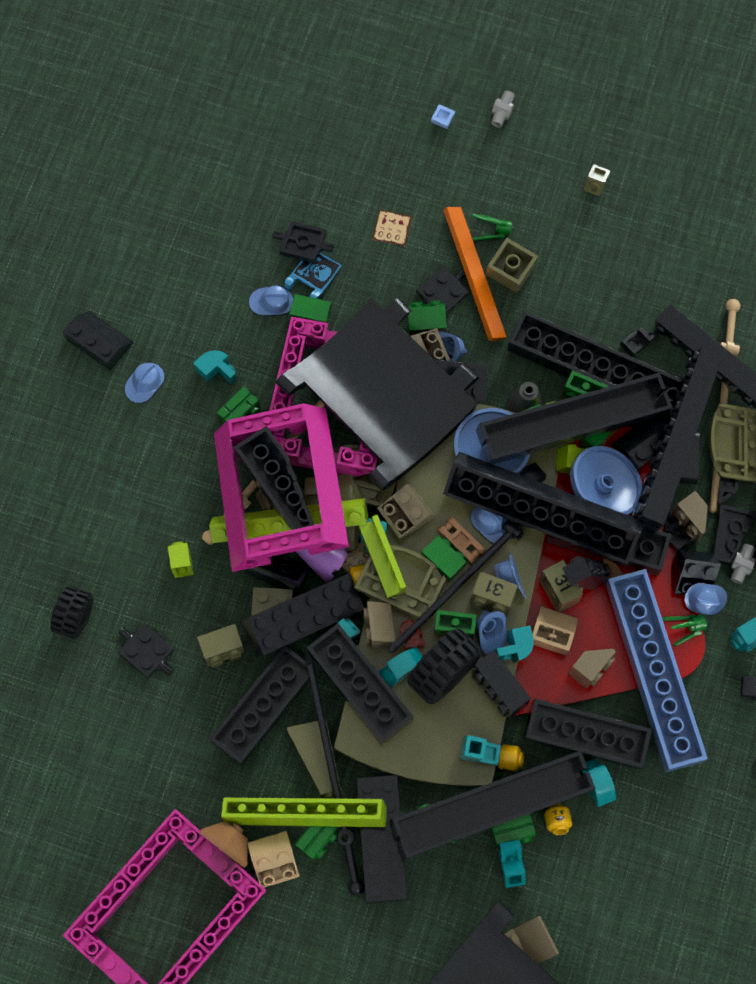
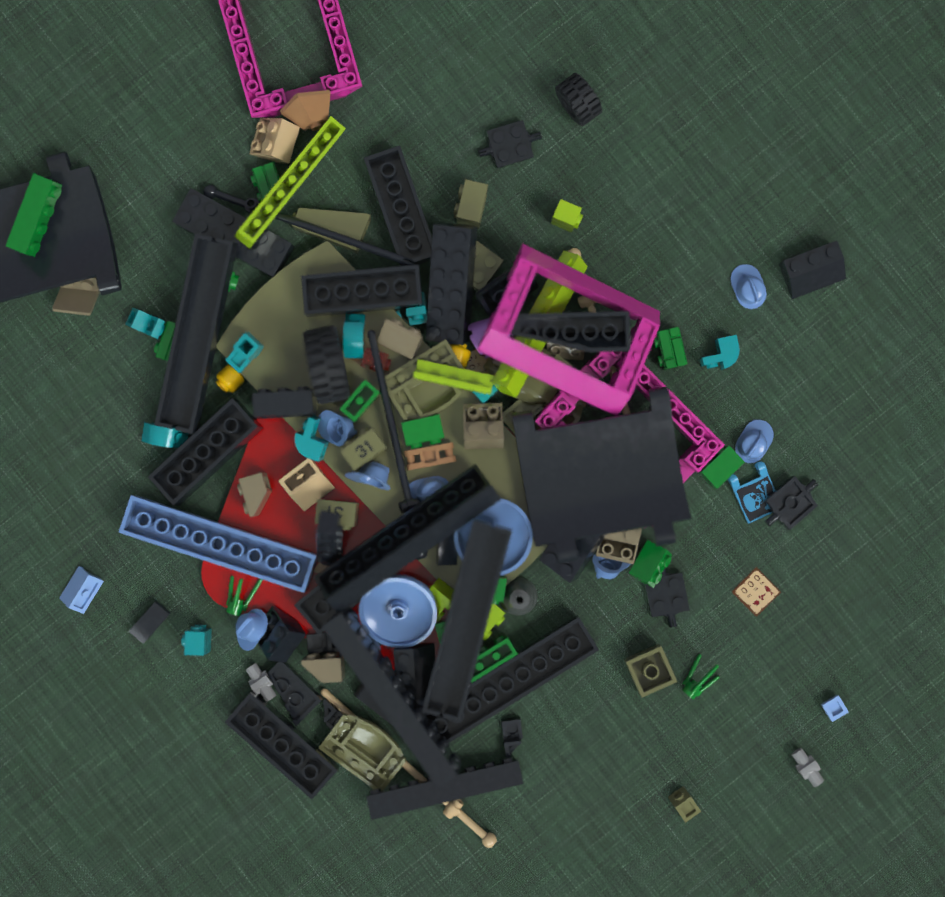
camera: 125 degrees right, 15 degrees up
(474, 273) = (665, 634): orange tile -> none
(558, 819) = (153, 383): yellow head -> none

